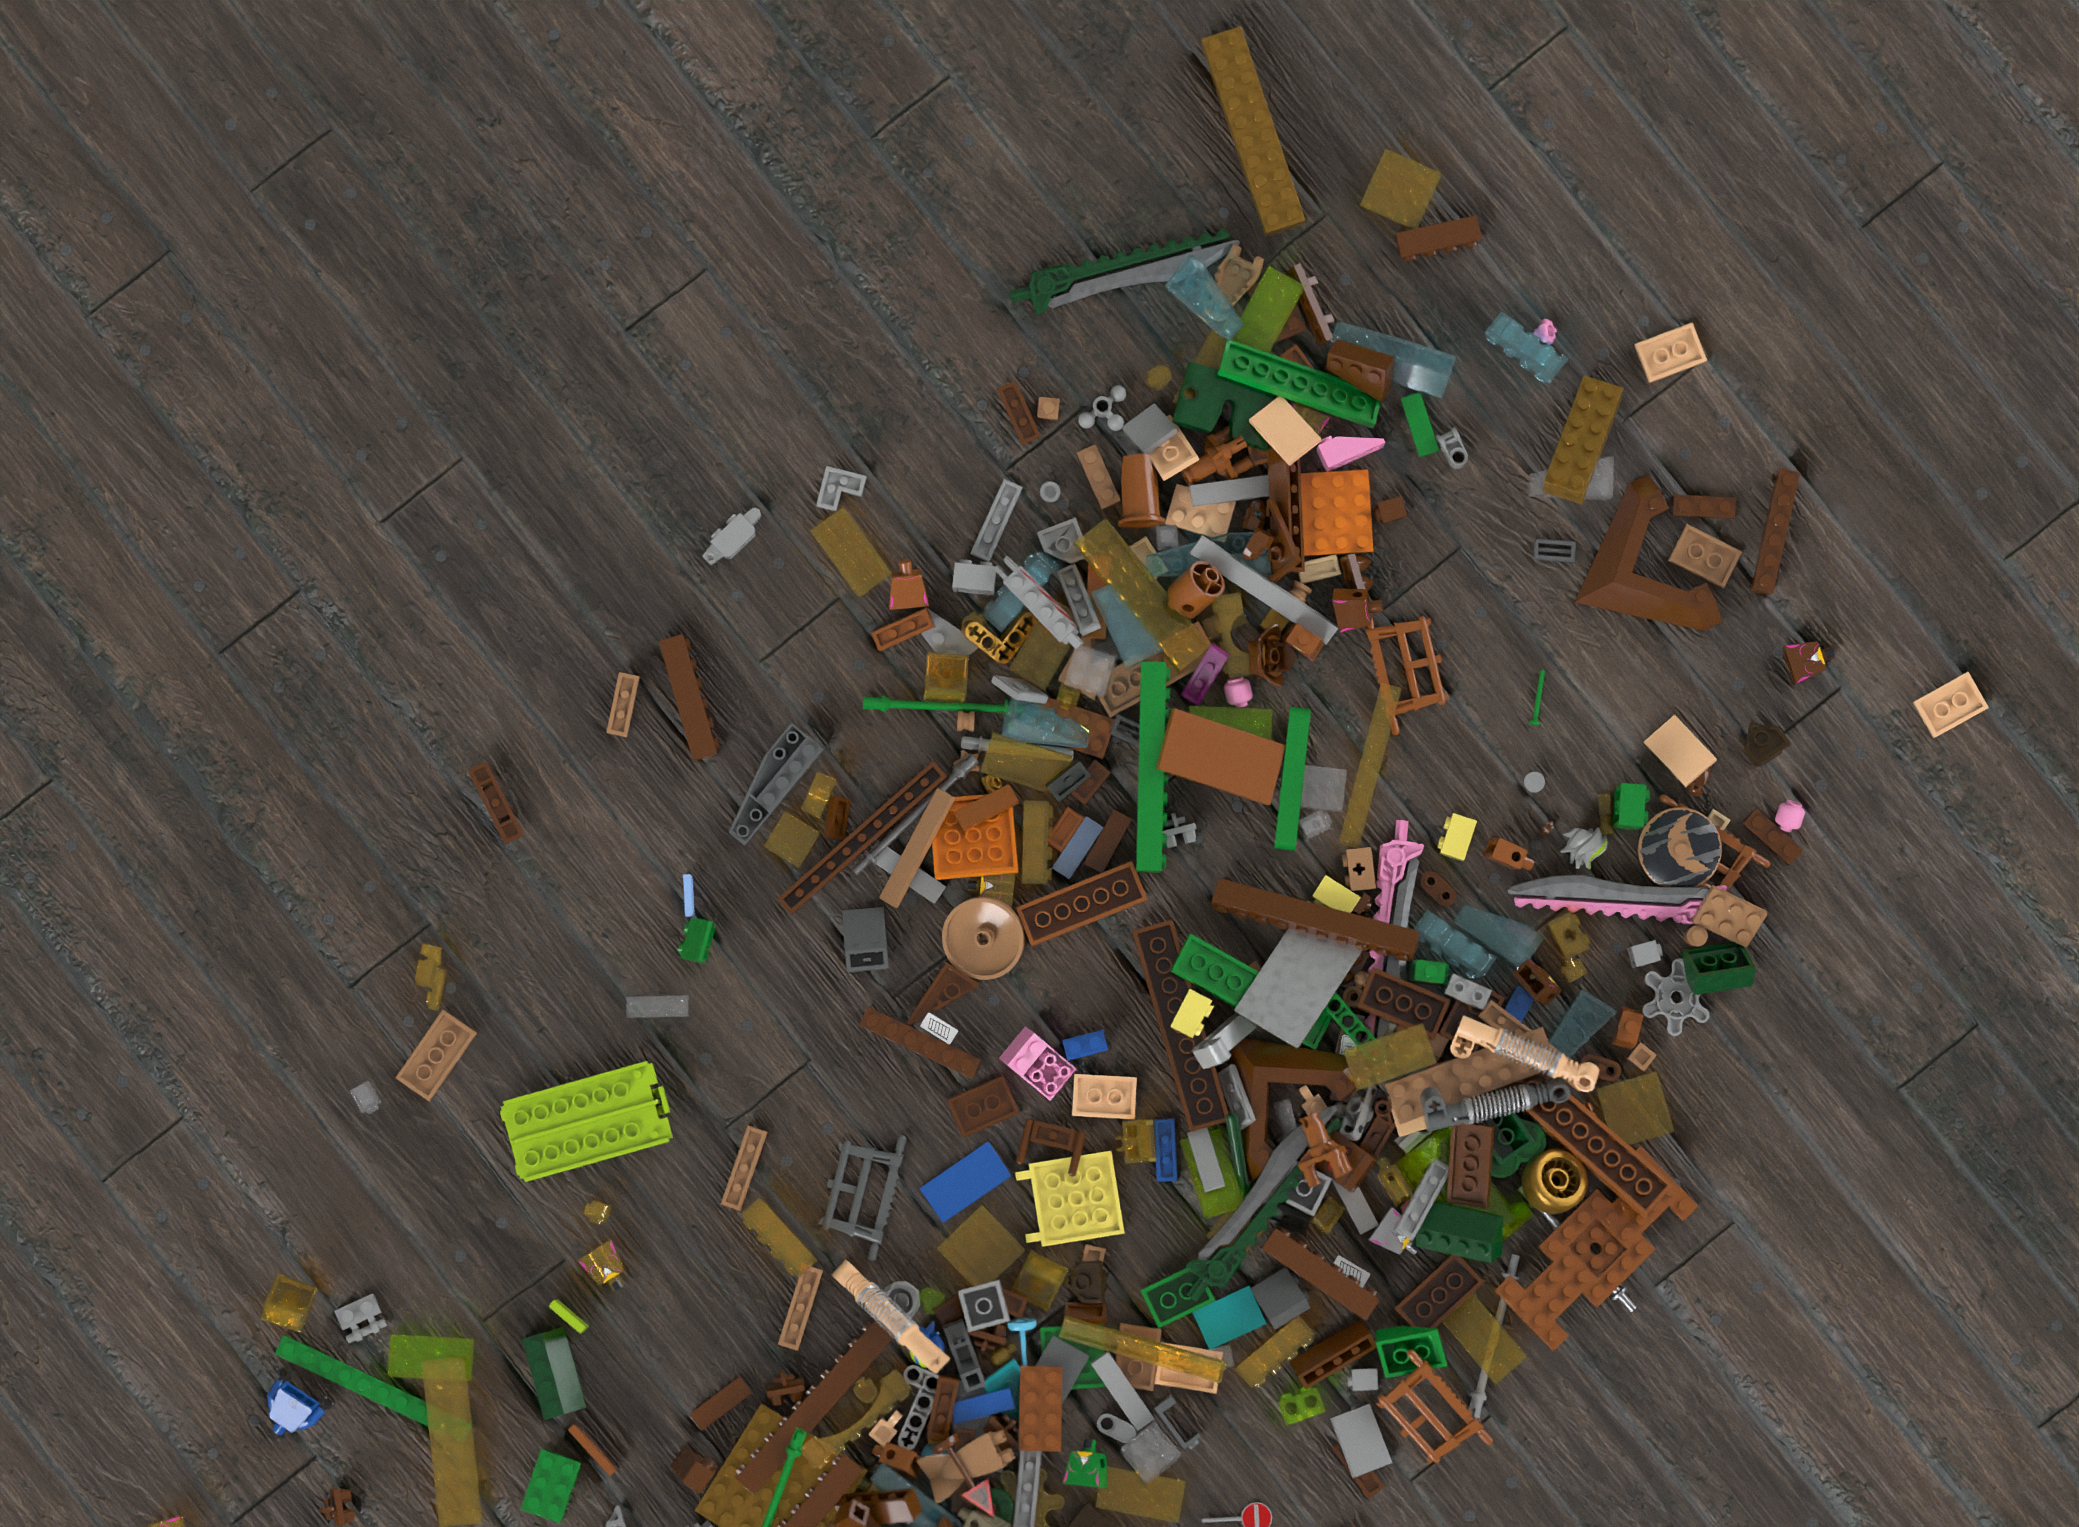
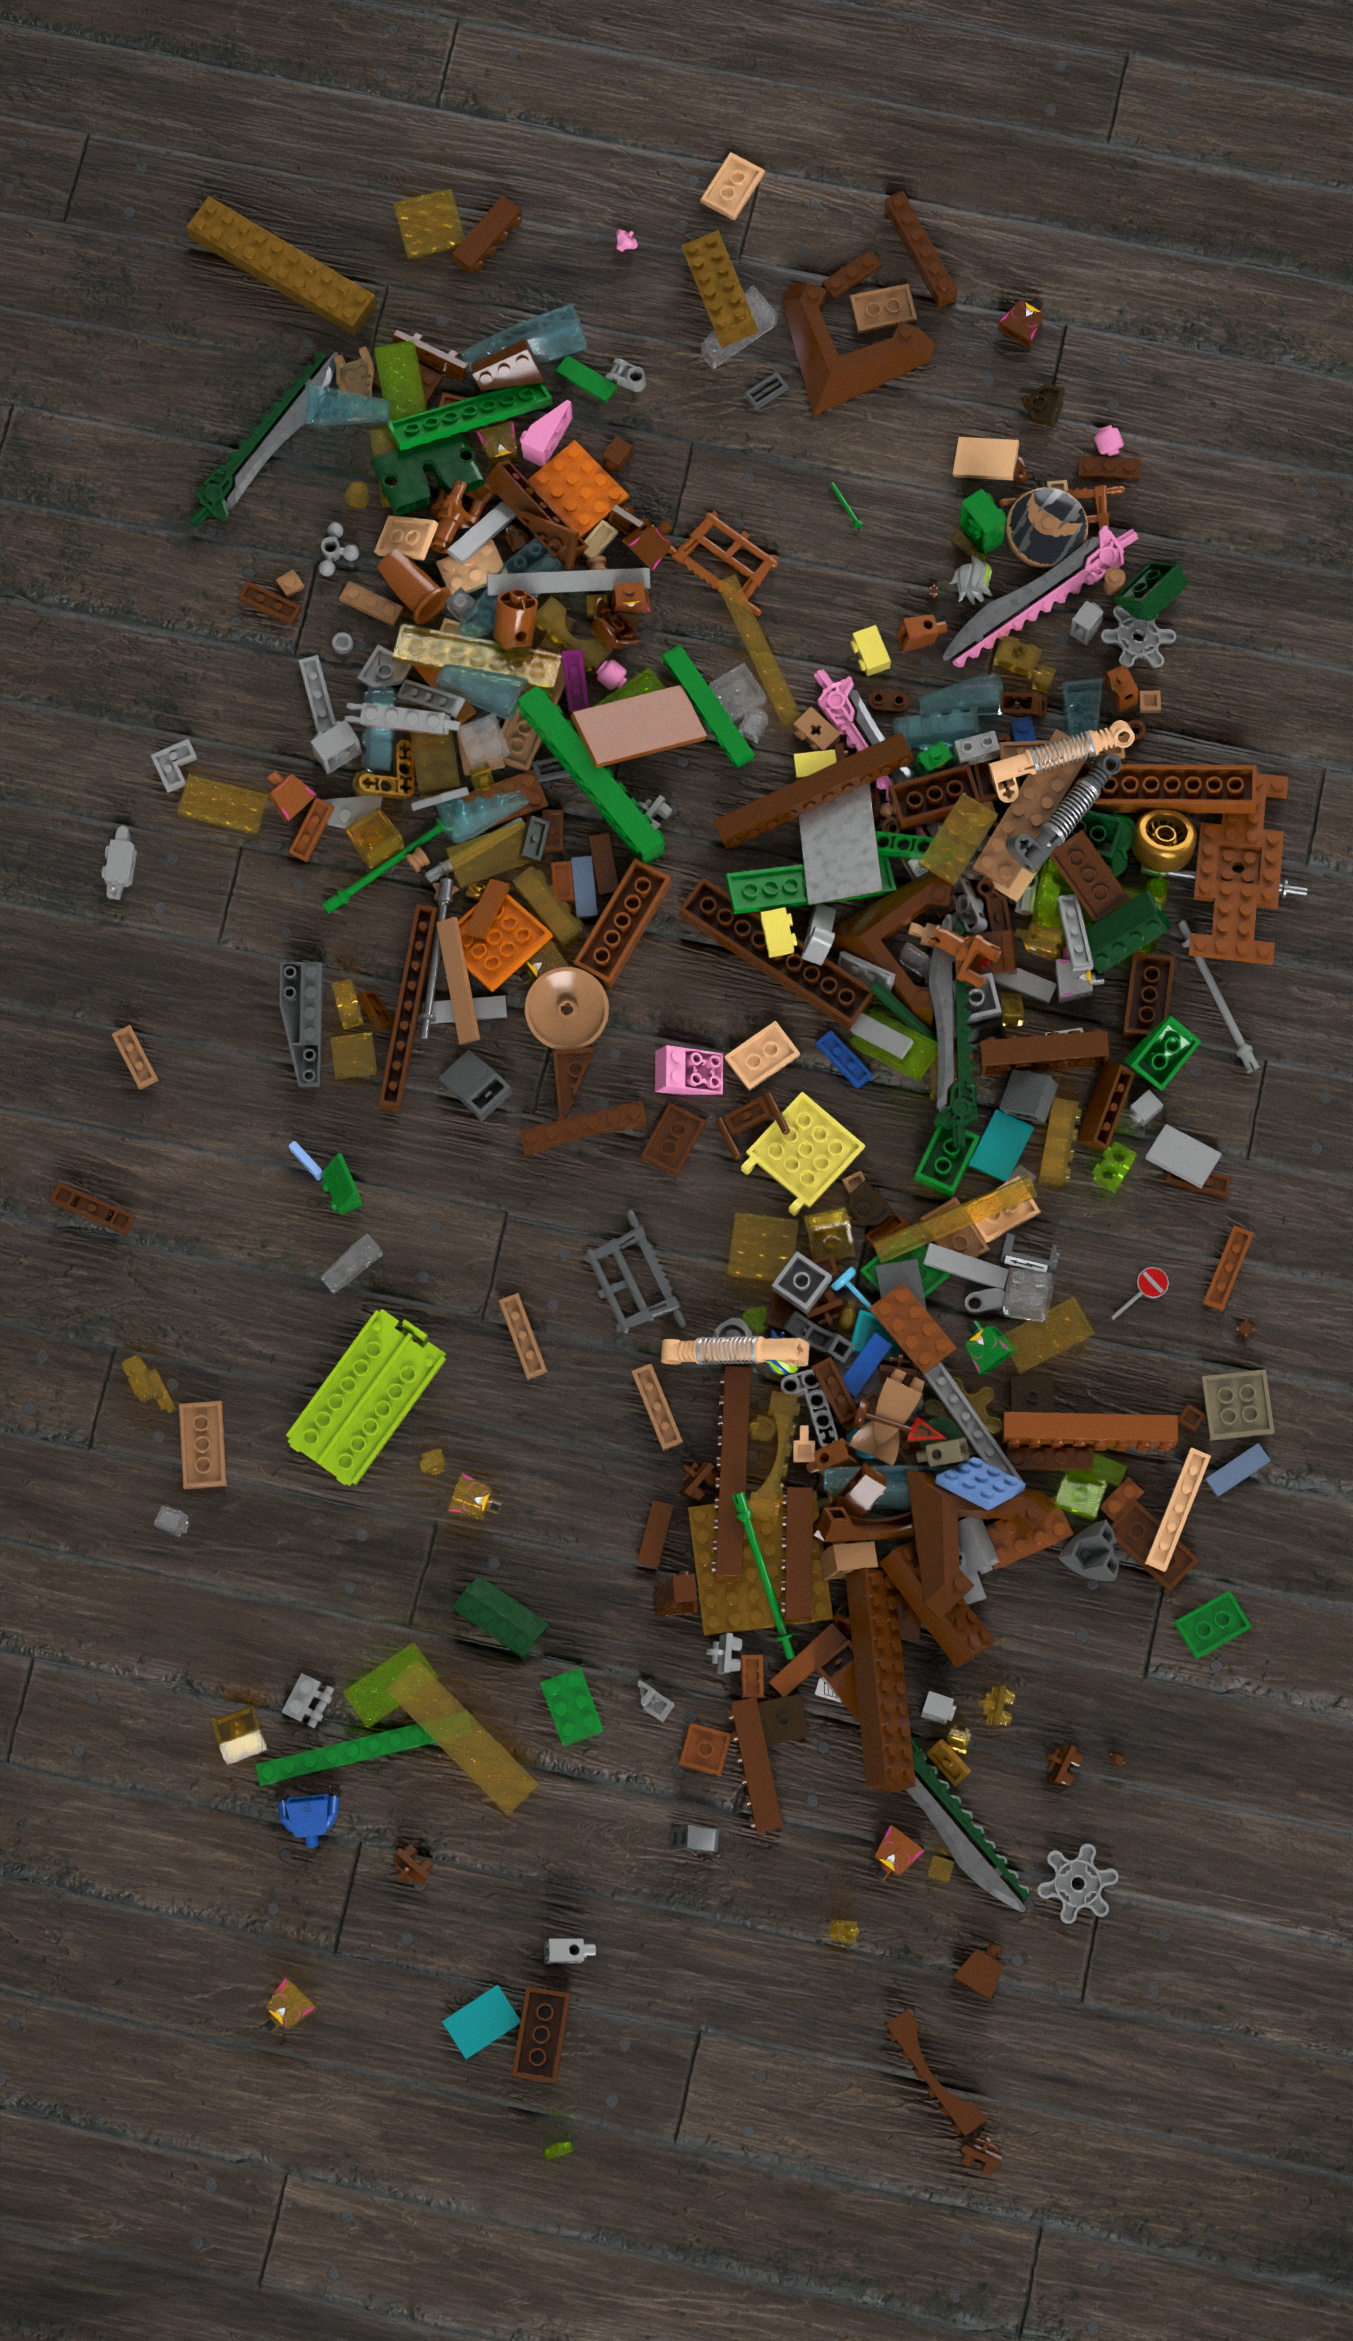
camera: 35 degrees left, 10 degrees down
(571, 1318) = (476, 1559): lime tile -> none
(592, 1449) = (582, 1652): dark orange tile -> none
(688, 697) = (183, 1011): reddish brown brick -> none
(779, 1237) = (595, 1364): clear yellow brick -> none
(939, 1028) = (585, 1106): white sticker -> none
(965, 1182) = (707, 1207): blue tile -> none
(1085, 1045) = (714, 1028): blue brick -> none
(1138, 1141) = (817, 1067): clear yellow brick -> none
(1149, 429) = (381, 536): light grey tile -> none
(1258, 544) = (535, 548): reddish brown rock -> none
(1285, 430) = (486, 451): light nougat tile -> none
(1451, 1440) = (1182, 1084): dark orange piece -> none
(1485, 1339) = (1212, 1001): clear yellow plate -> none
(1525, 347) = (621, 261): clear light blue wedge -> none
(1534, 782) = (894, 567): light grey tile -> none
(1636, 1108) = (1178, 740): clear yellow plate -> none
(1729, 916) = (1127, 544): medium nougat plate -> none
(1950, 705) = (1158, 271): light nougat plate -> none

